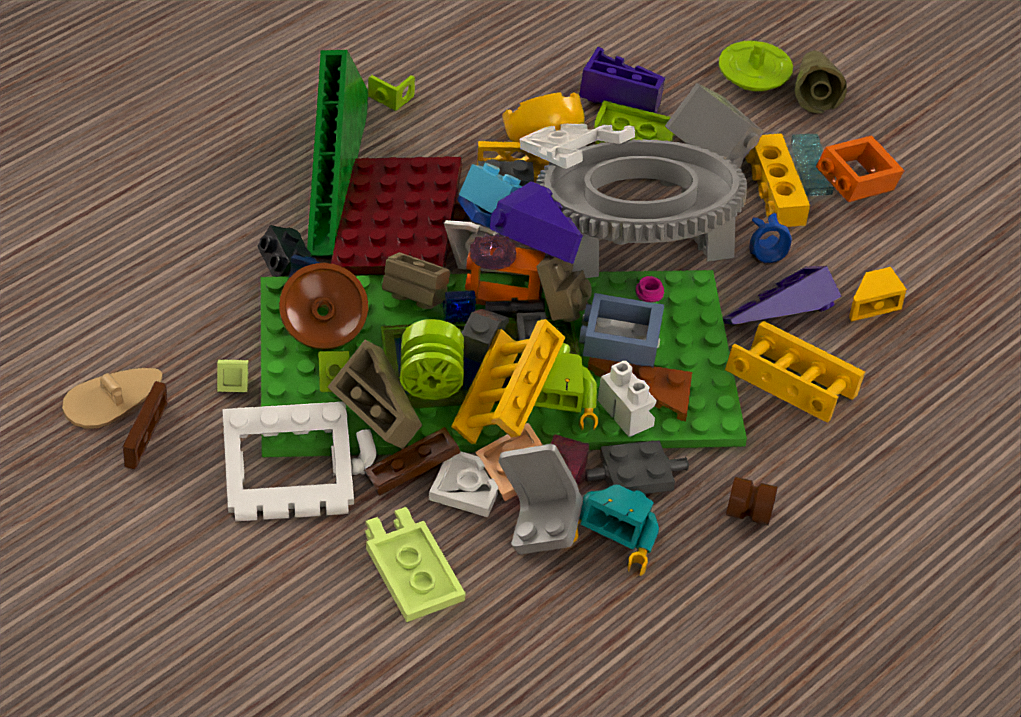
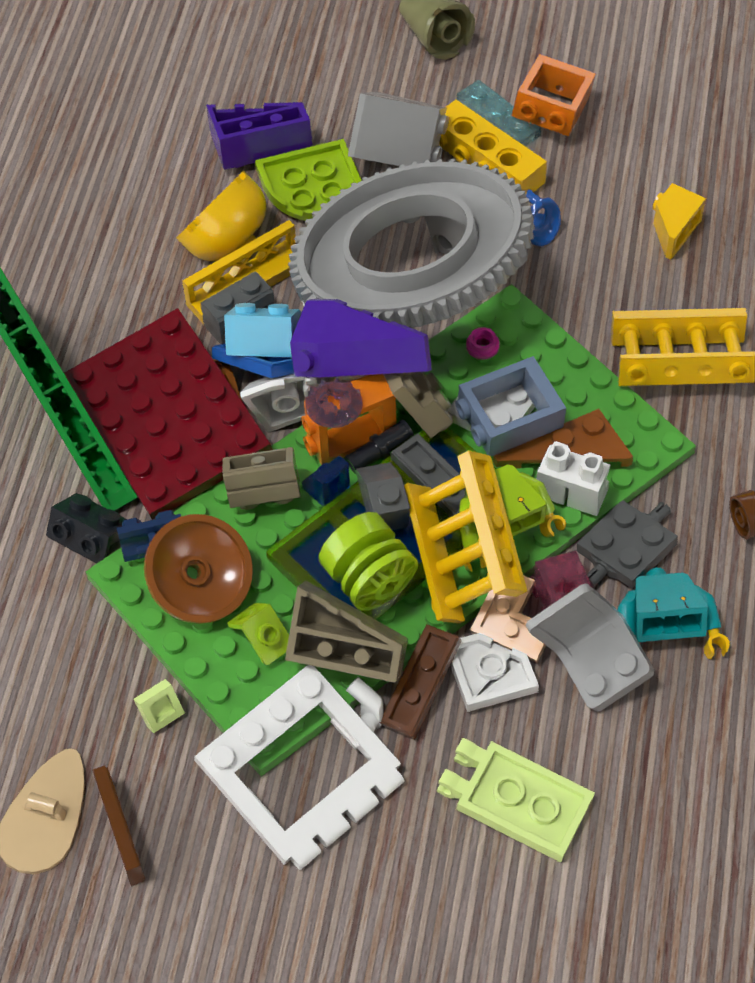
camera: 30 degrees left, 10 degrees up
(390, 95) = (34, 279): lime bracket -> none
(562, 145) = (278, 228): white wing -> none
(755, 65) = (363, 38): lime piece -> none
(800, 292) = (607, 264): wedge -> none

